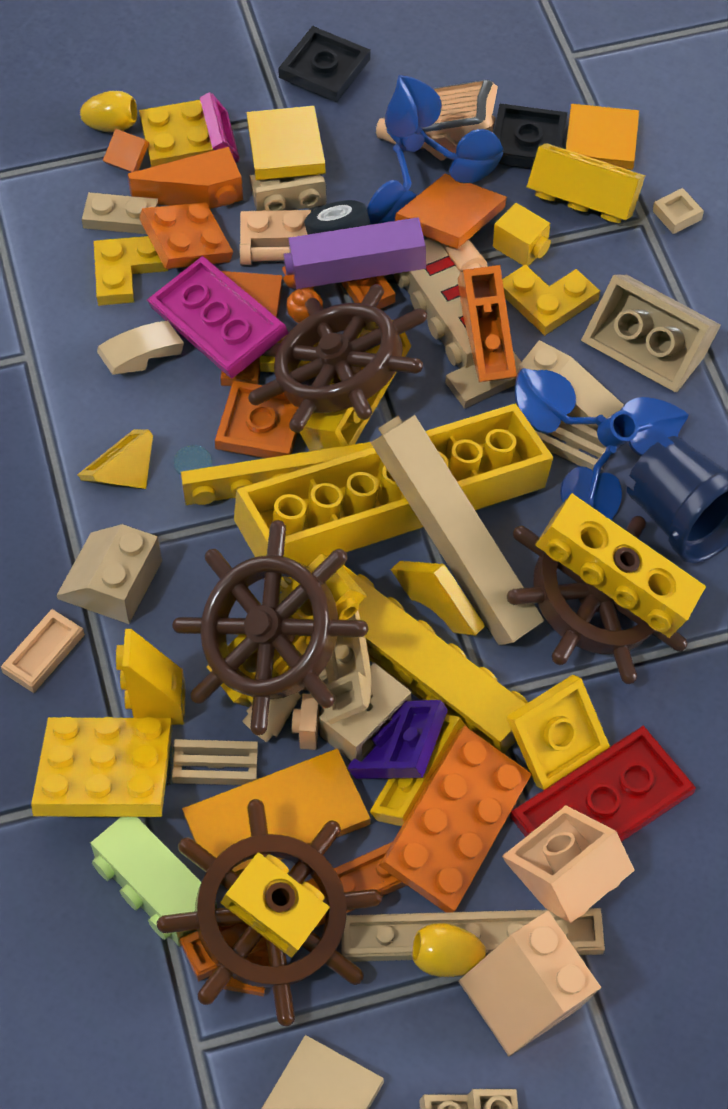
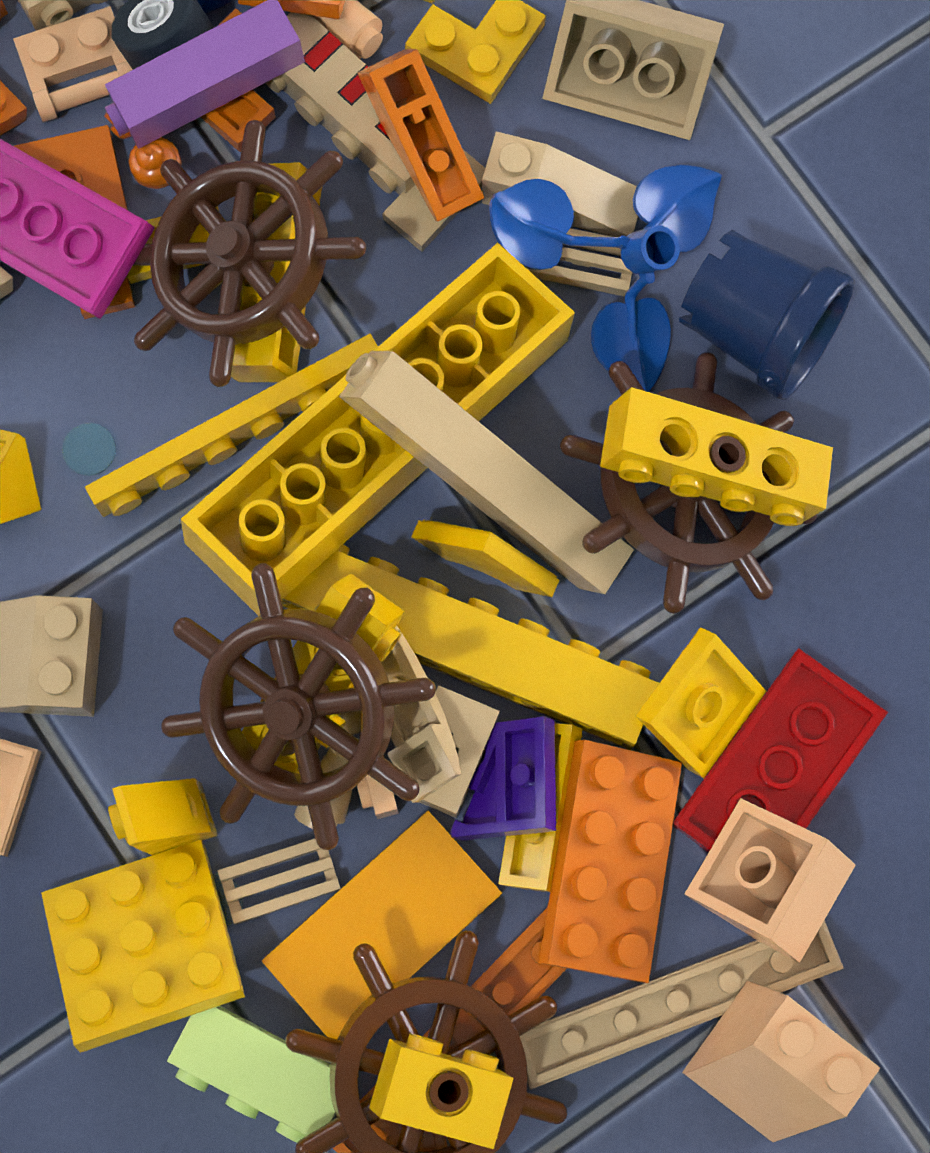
camera: 20 degrees left, 20 degrees up
(256, 429) = (160, 381): orange plate -> none
(446, 950) = (661, 1049): yellow animal -> none

